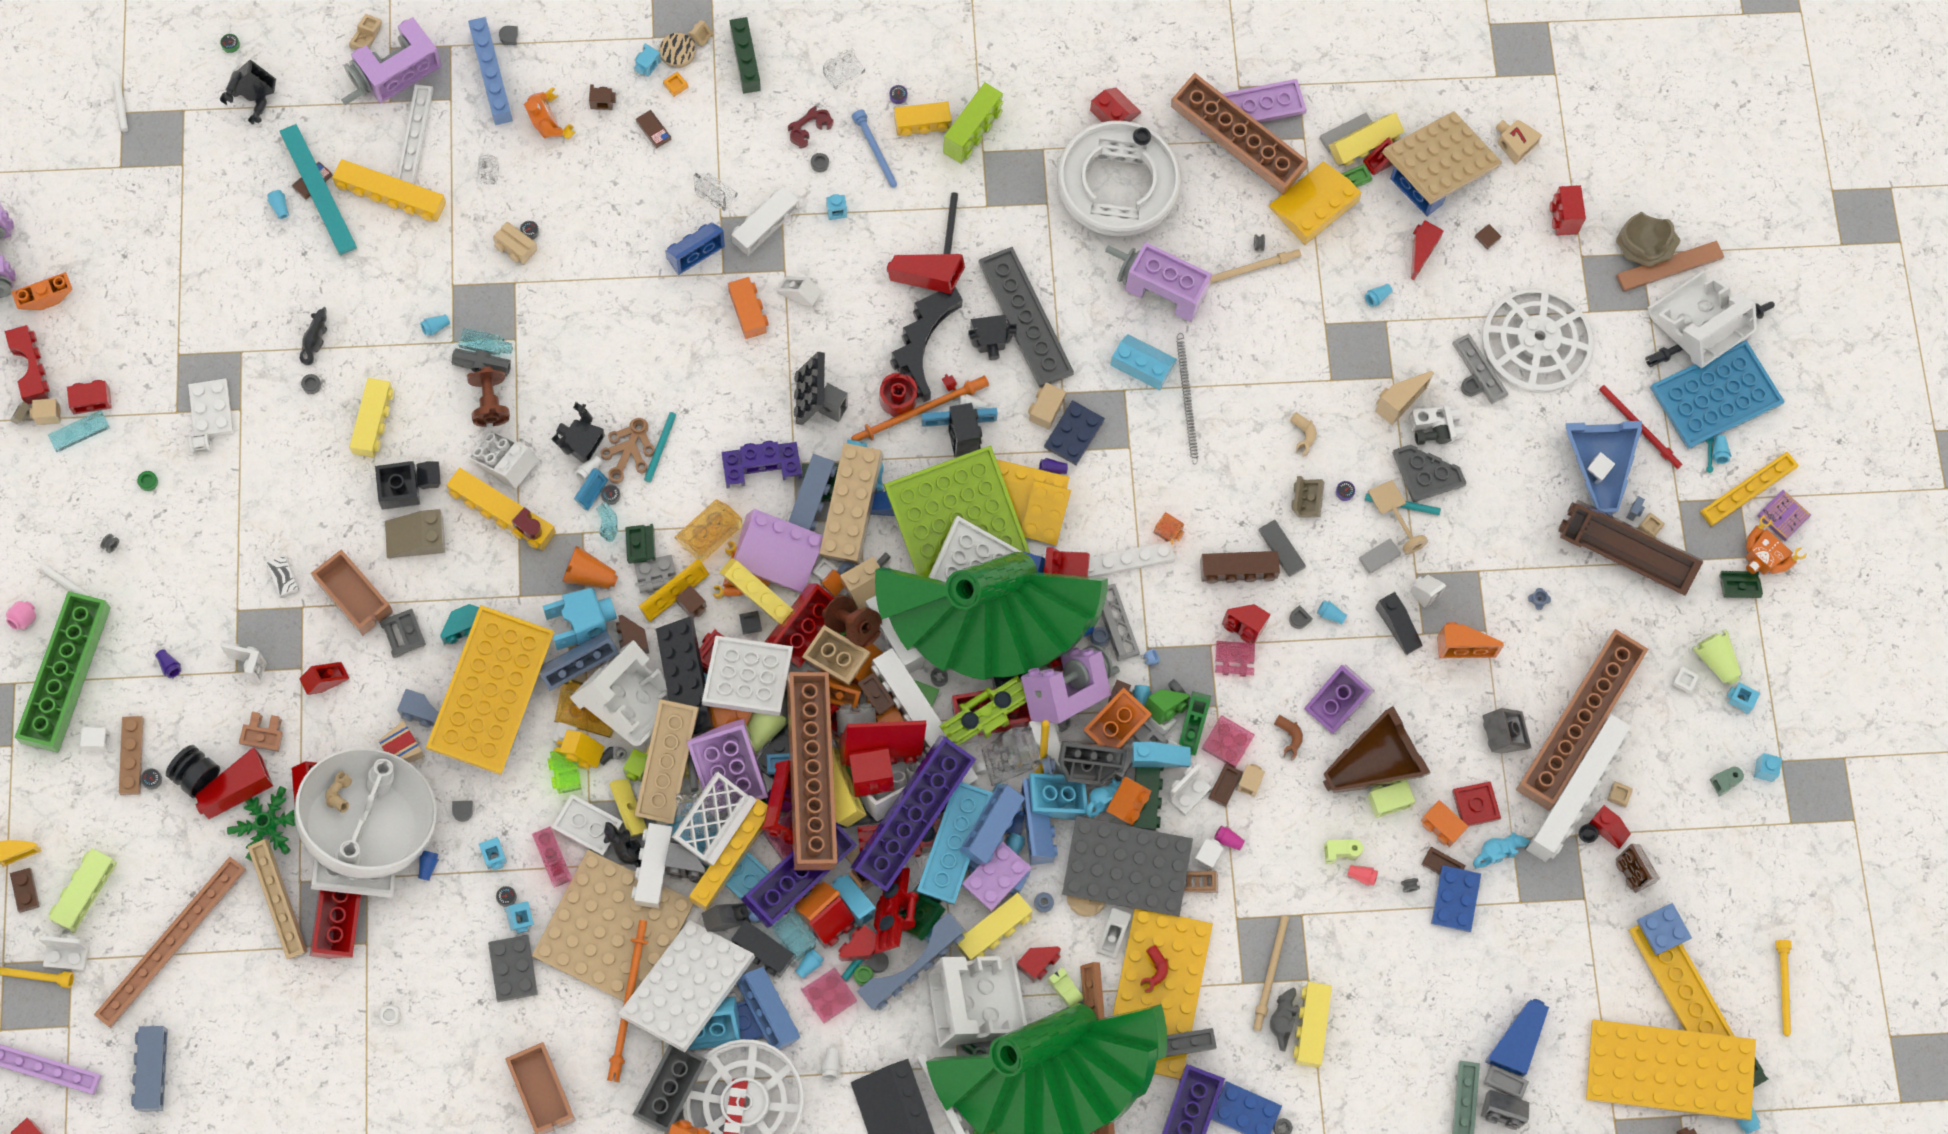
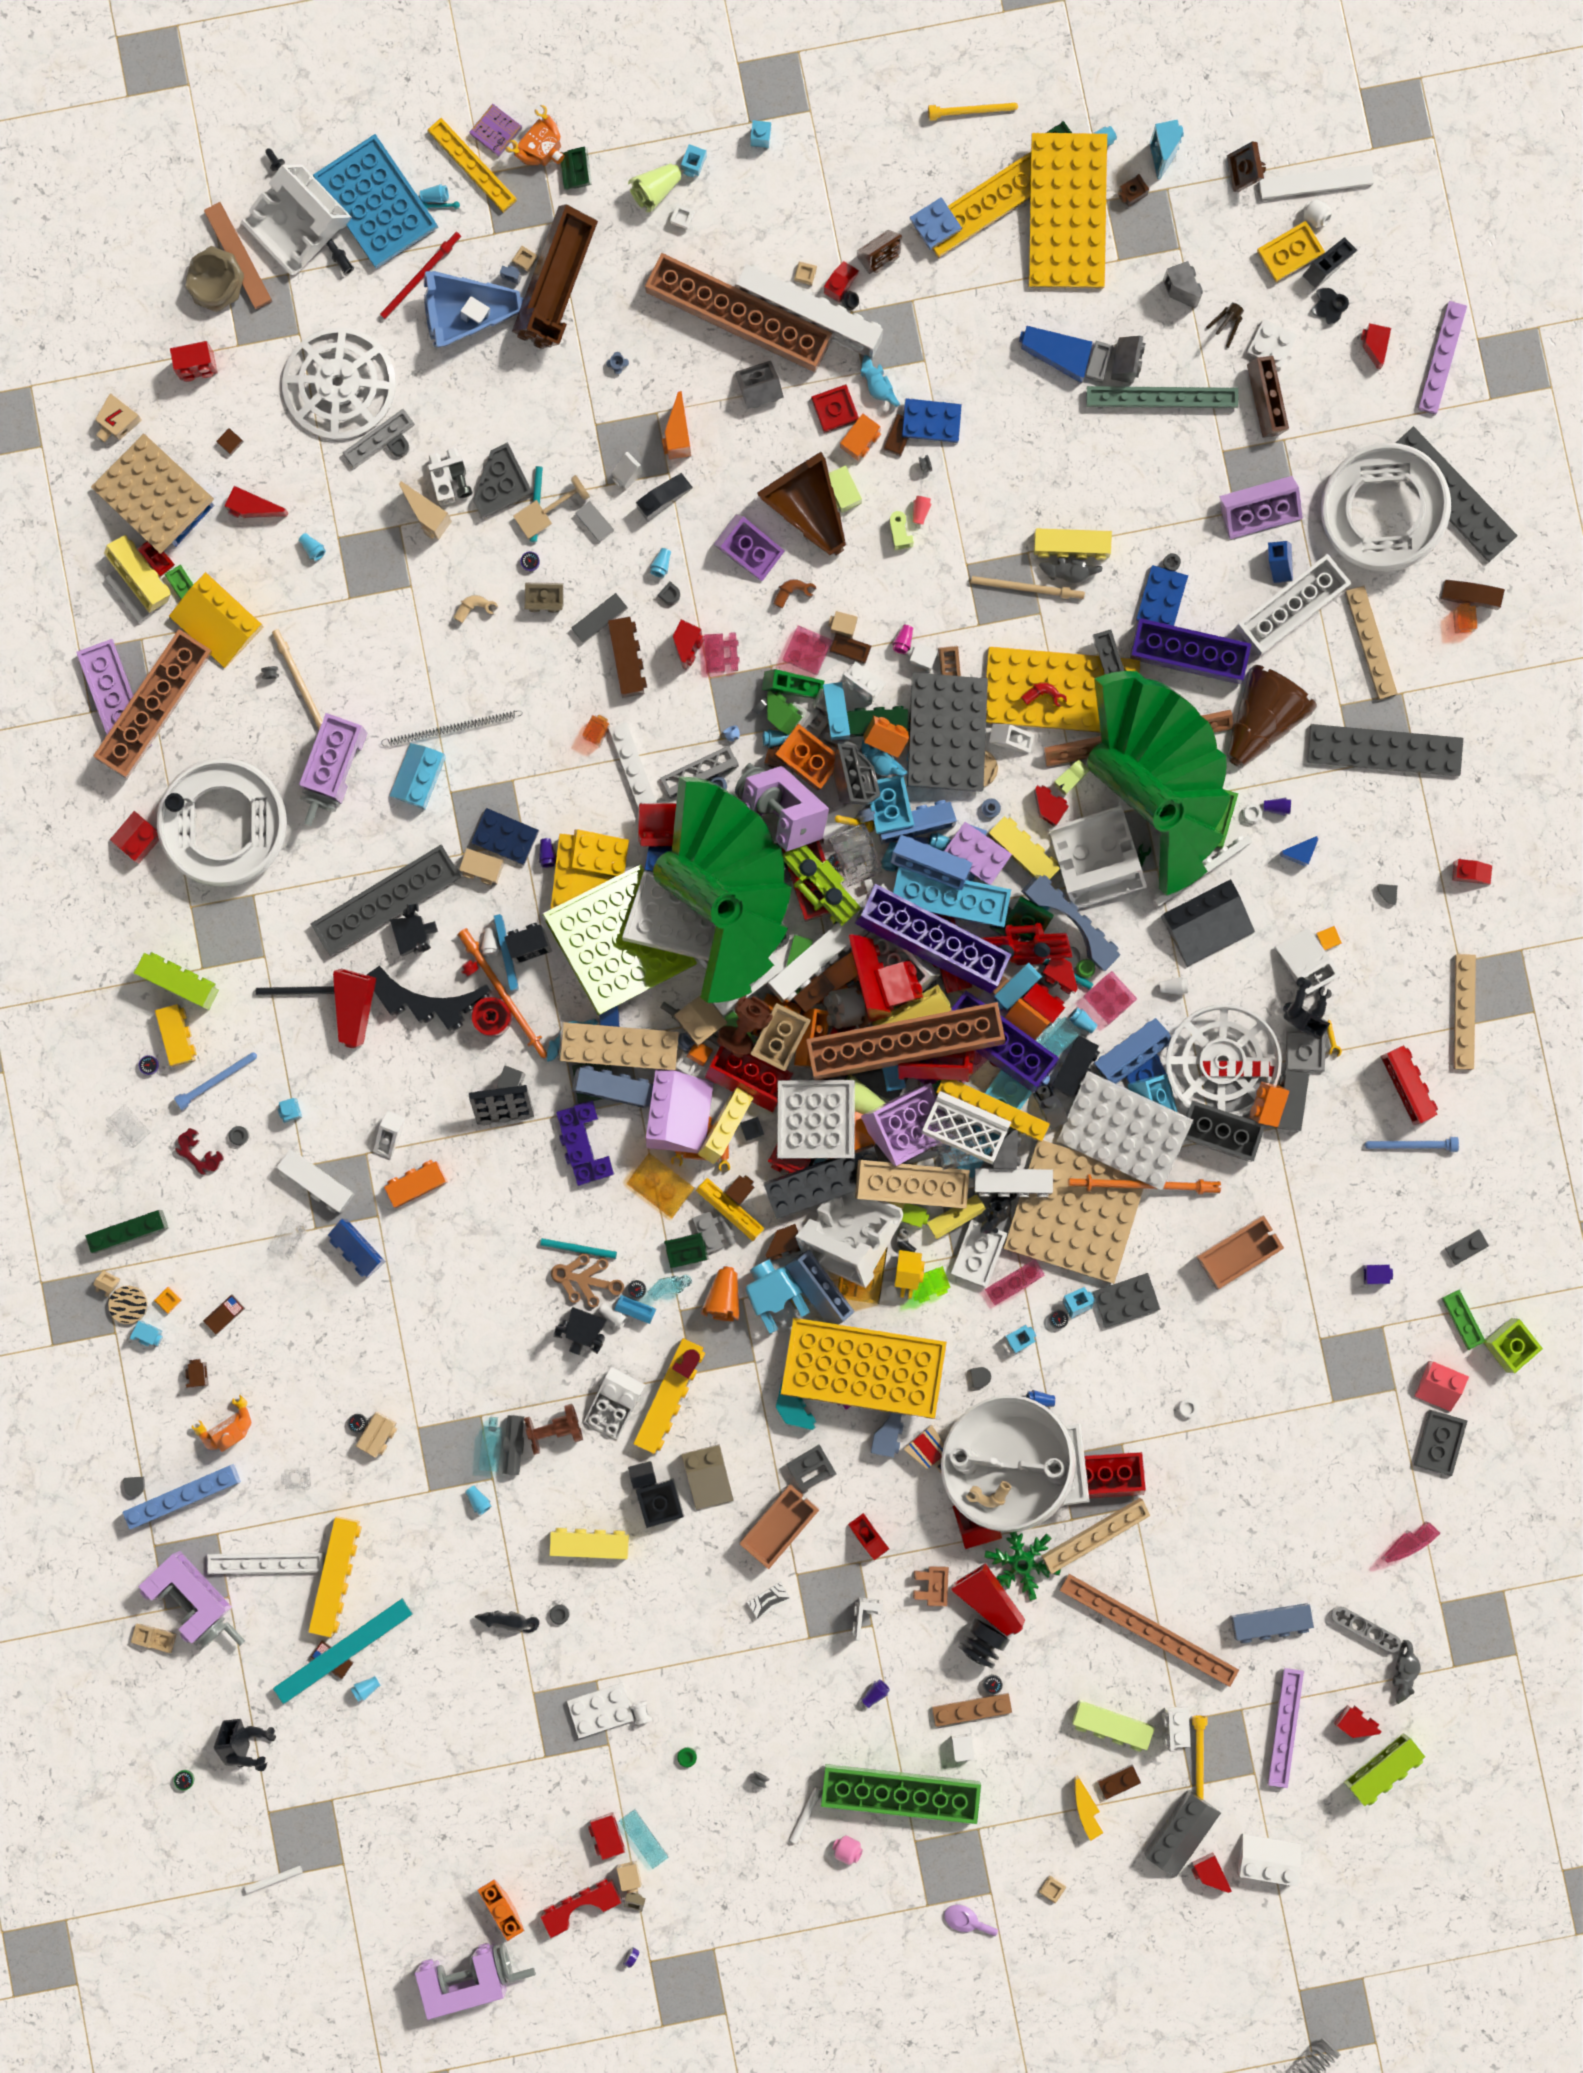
camera: 90 degrees left, 15 degrees up
(1726, 779) = (776, 172): sand green leg -> none

